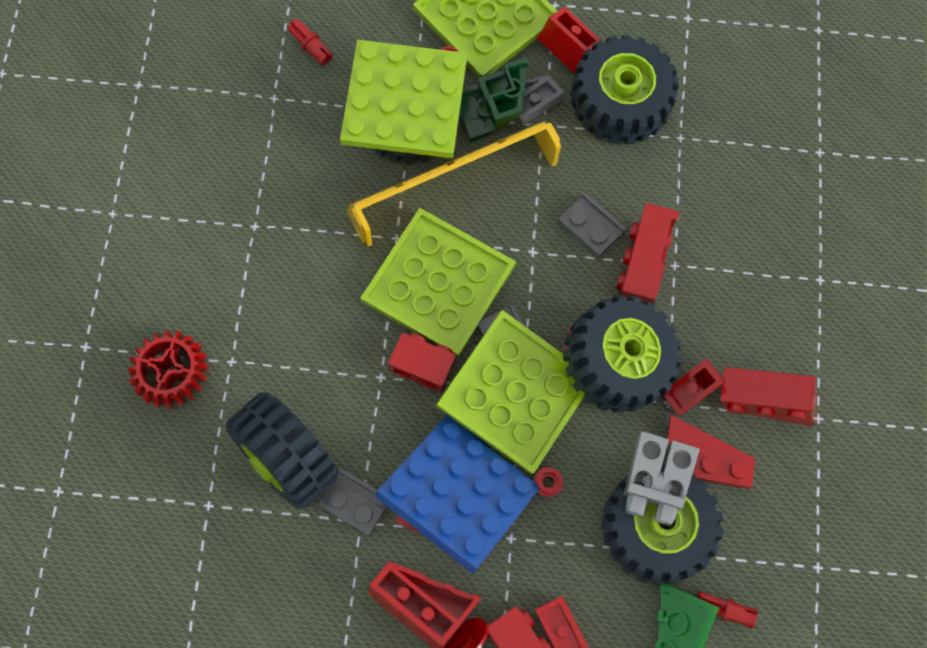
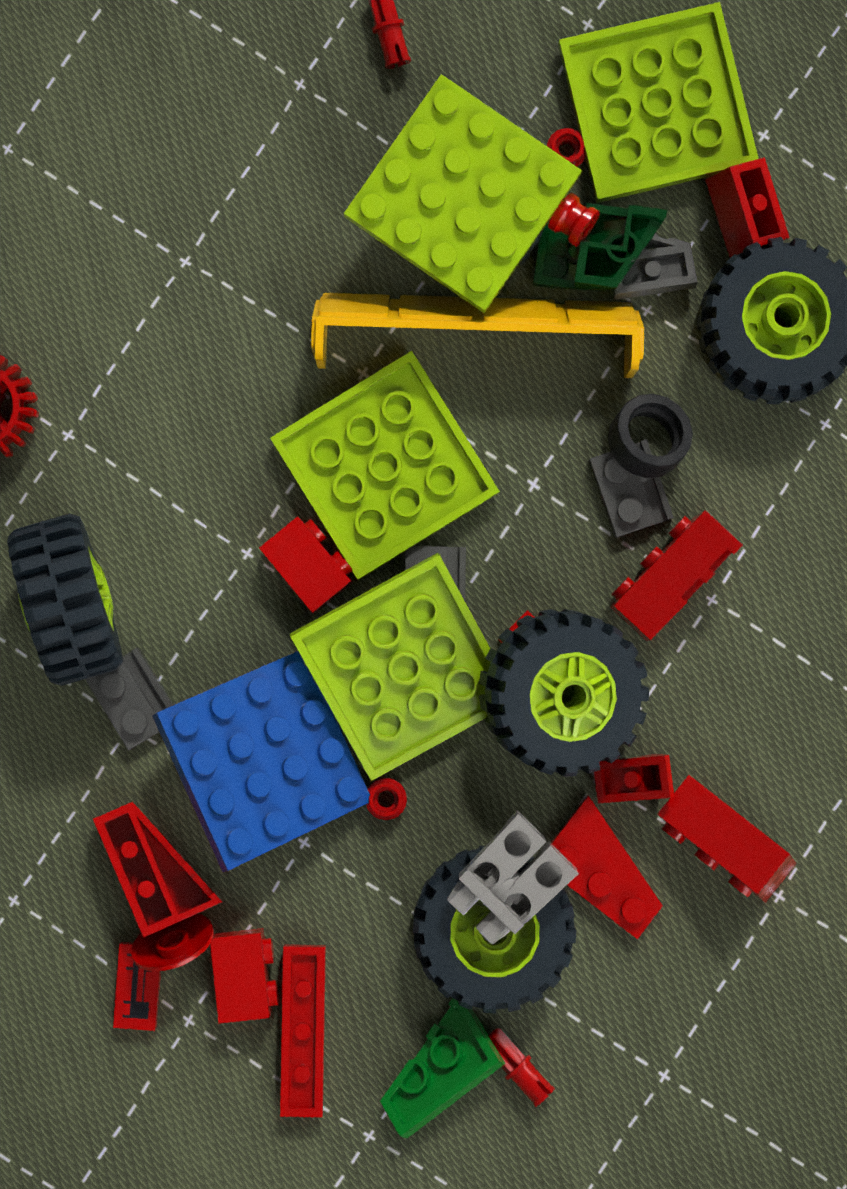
camera: 30 degrees right, 15 degrees up
(476, 86) = (573, 219): none -> red wheel
(584, 201) = (667, 414): none -> black tyre

